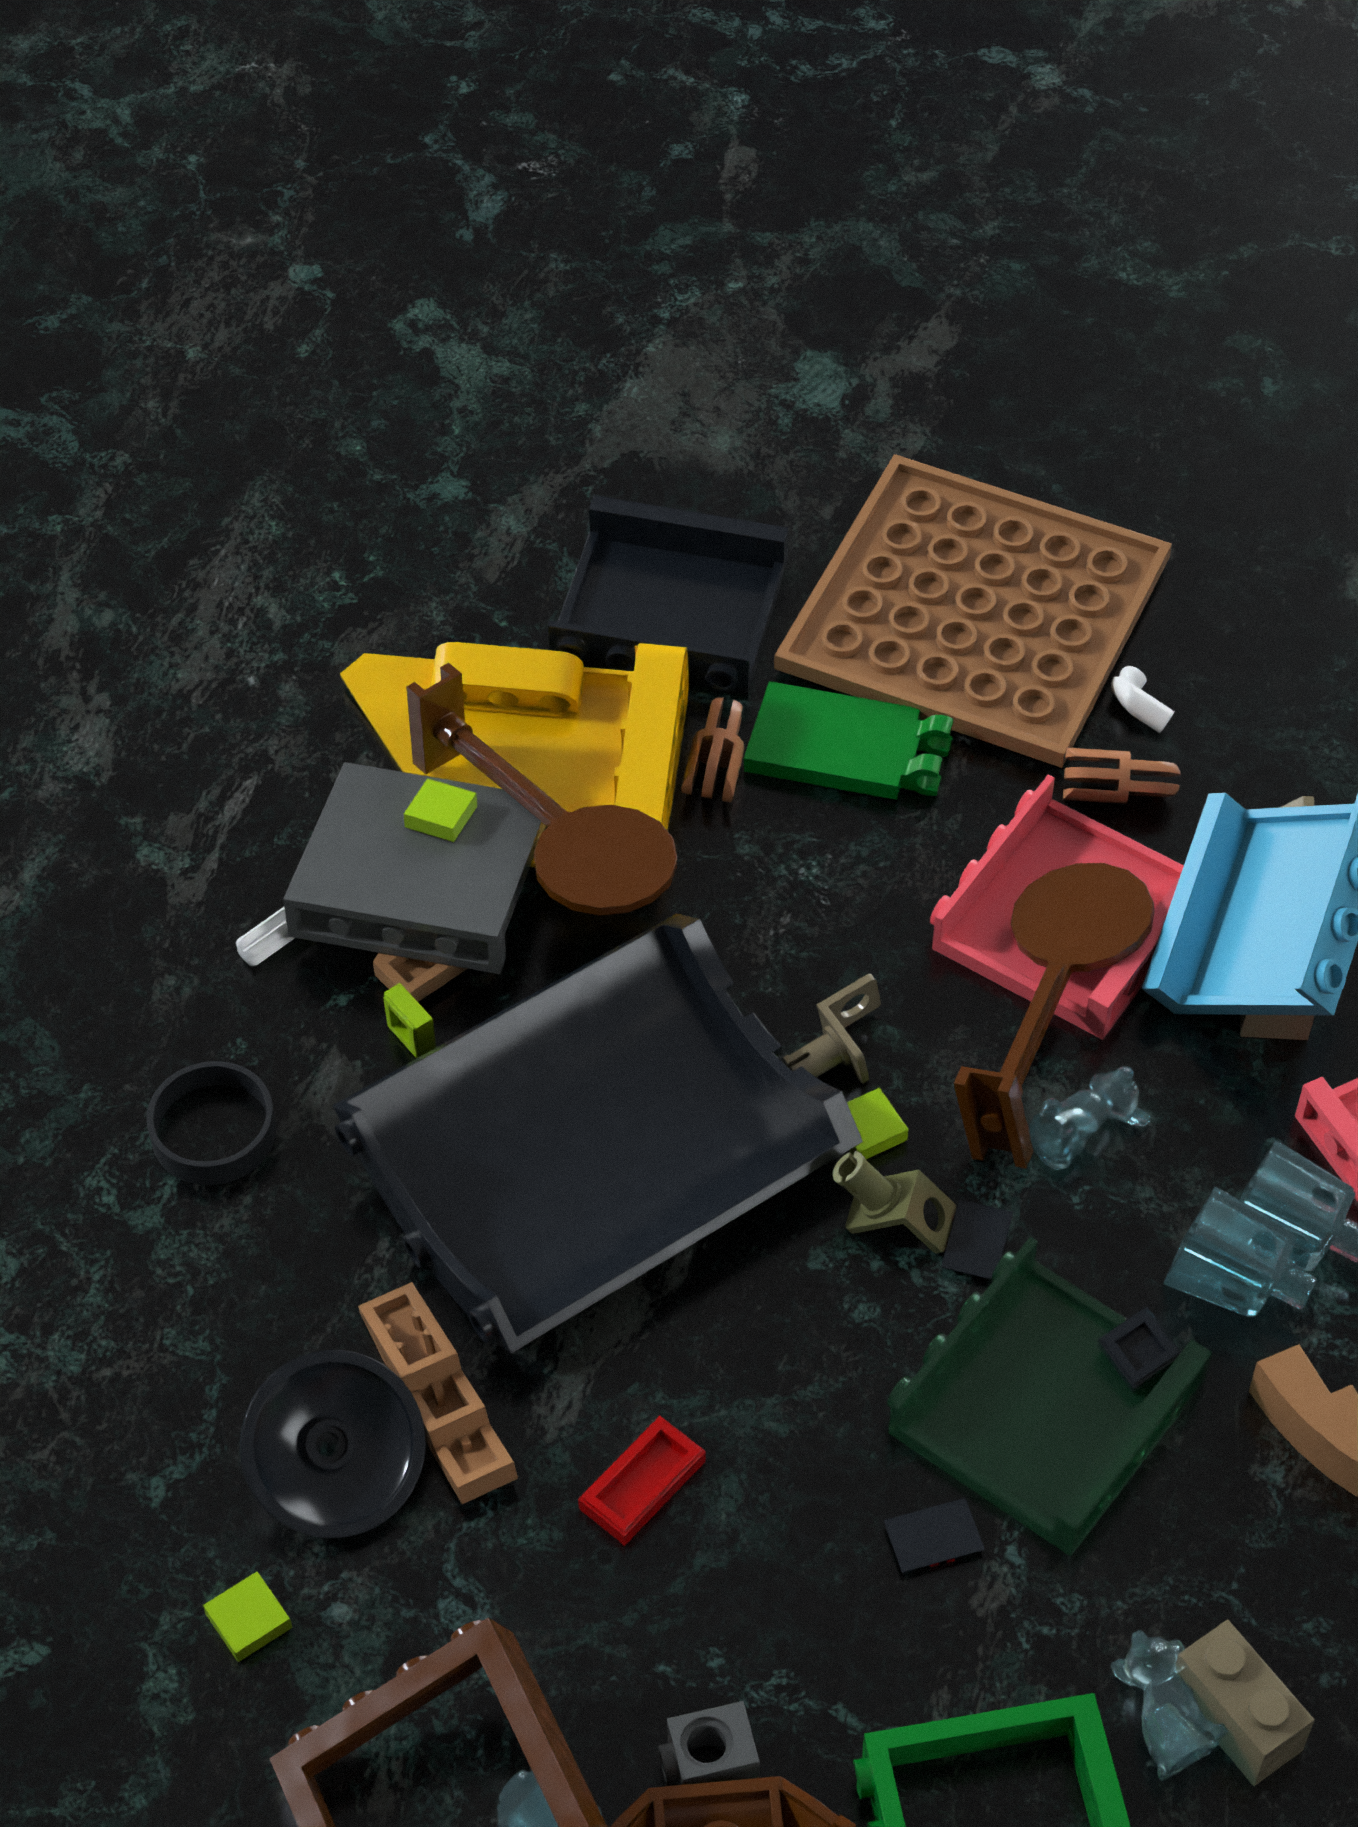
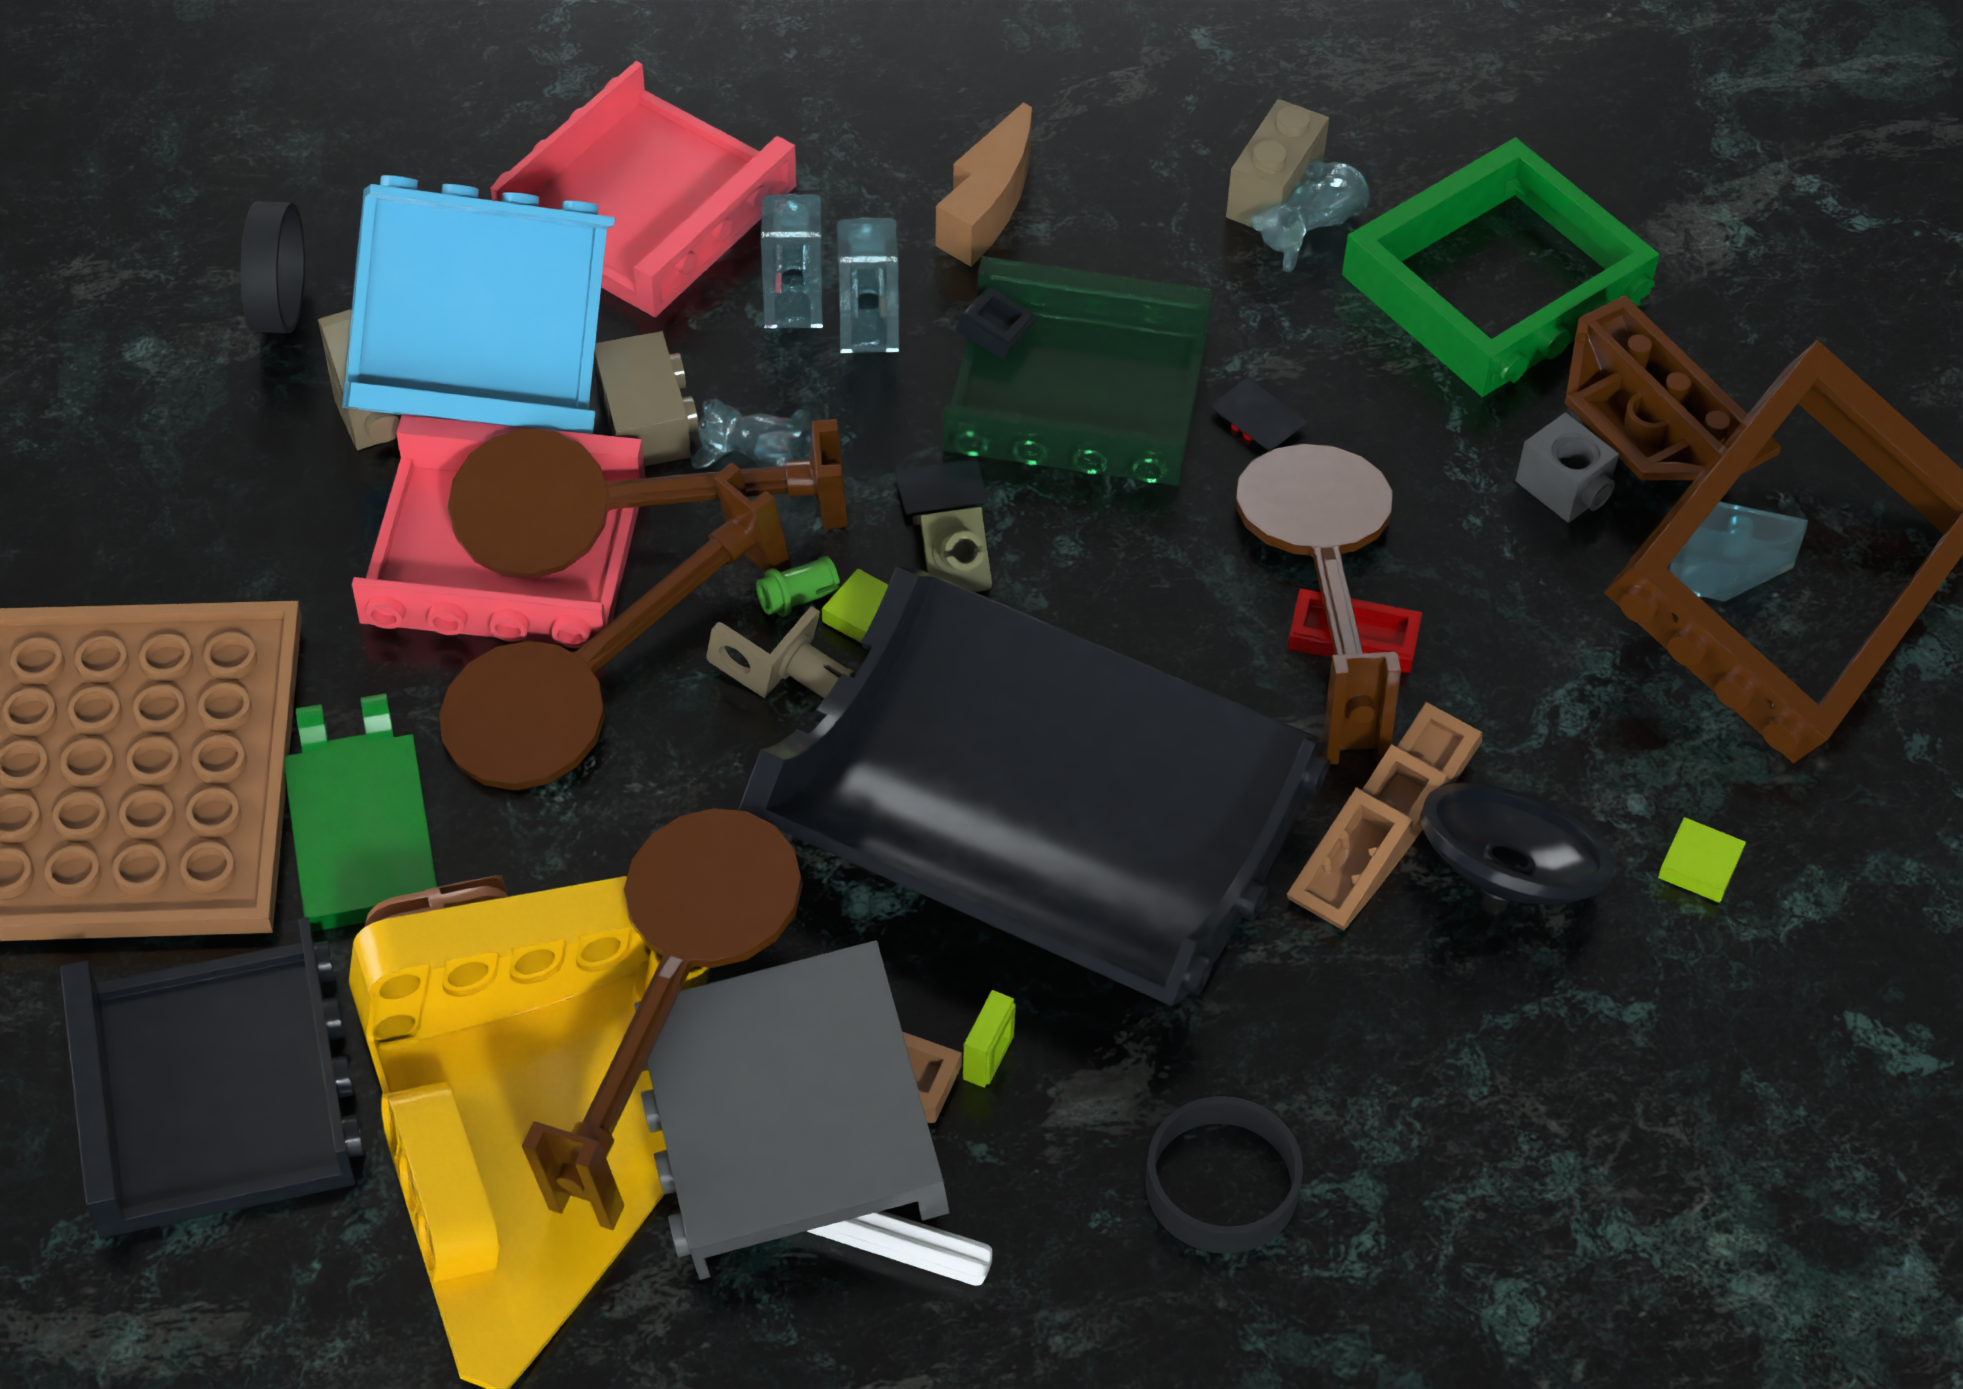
camera: 120 degrees left, 0 degrees up
(440, 810) = (725, 1085): lime tile -> none
(789, 1517) = (1325, 506): none -> piece
(895, 868) = (539, 709): none -> reddish brown piece
(913, 1071) = (797, 586): none -> bright green pin
(1119, 777) = (305, 552): nougat arm -> none
(1137, 702) = (177, 577): white arm -> none
(1177, 1046) = (643, 395): none -> dark tan brick

